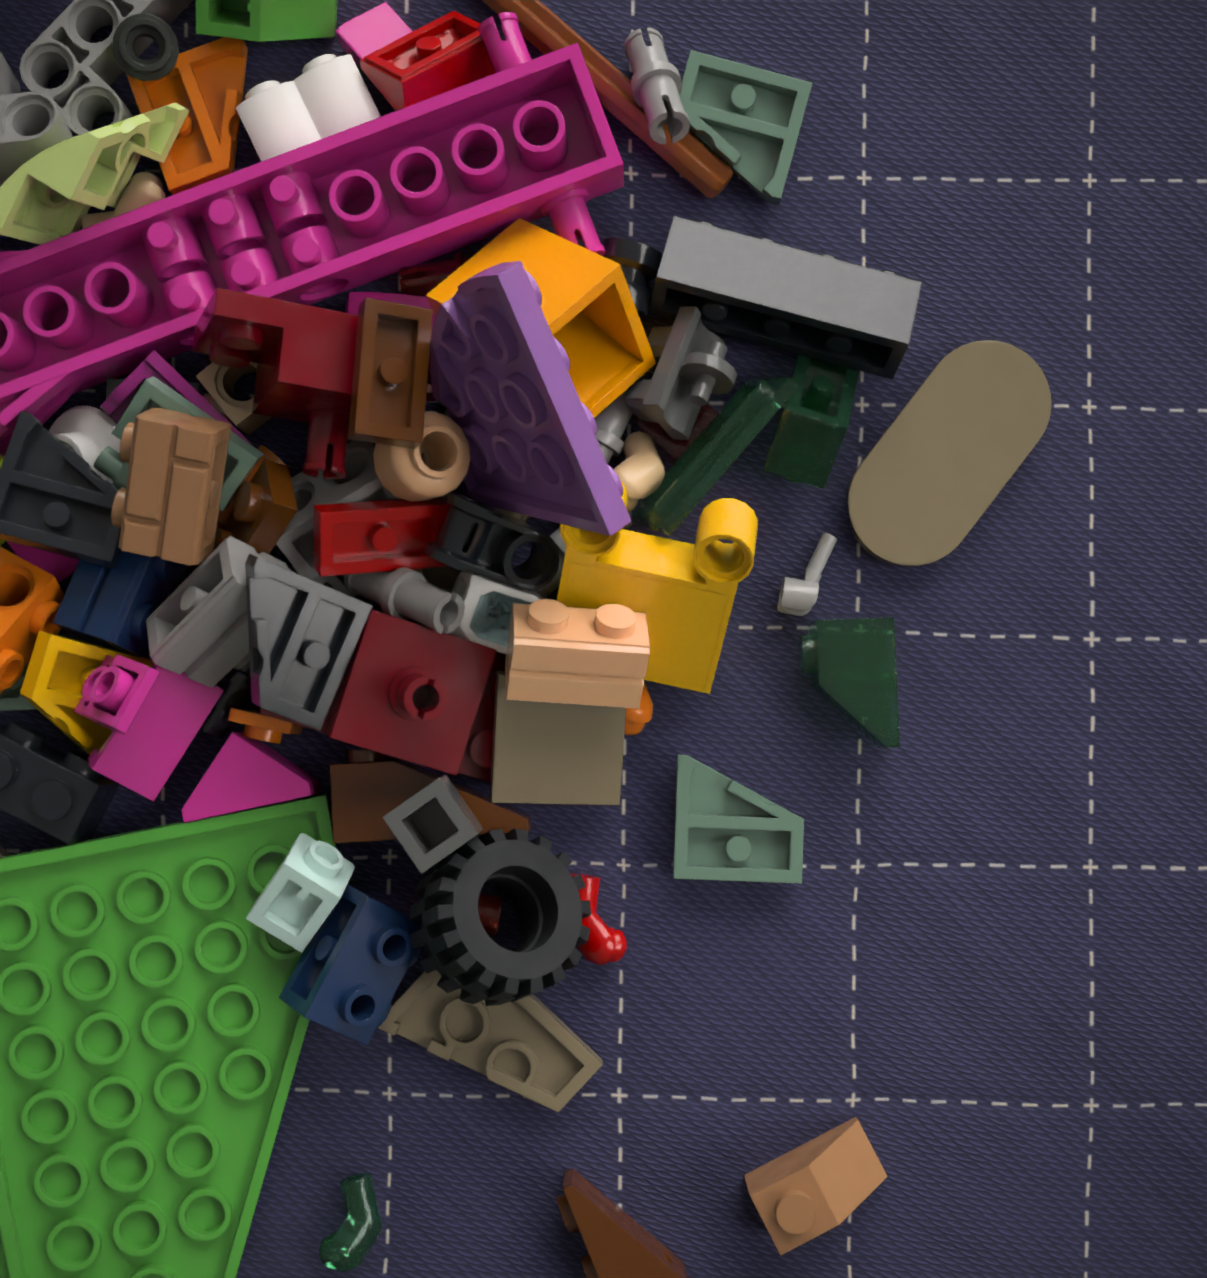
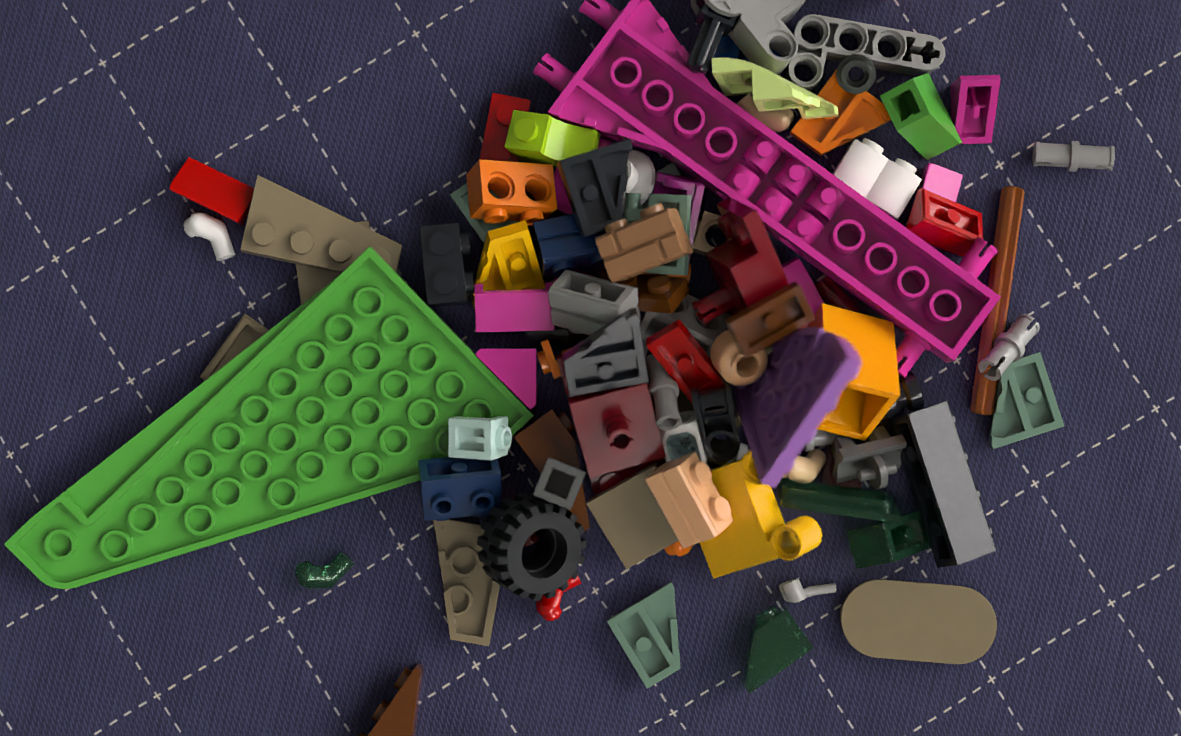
camera: 55 degrees right, 0 degrees up
(116, 692) = (521, 282): dark pink slope -> none

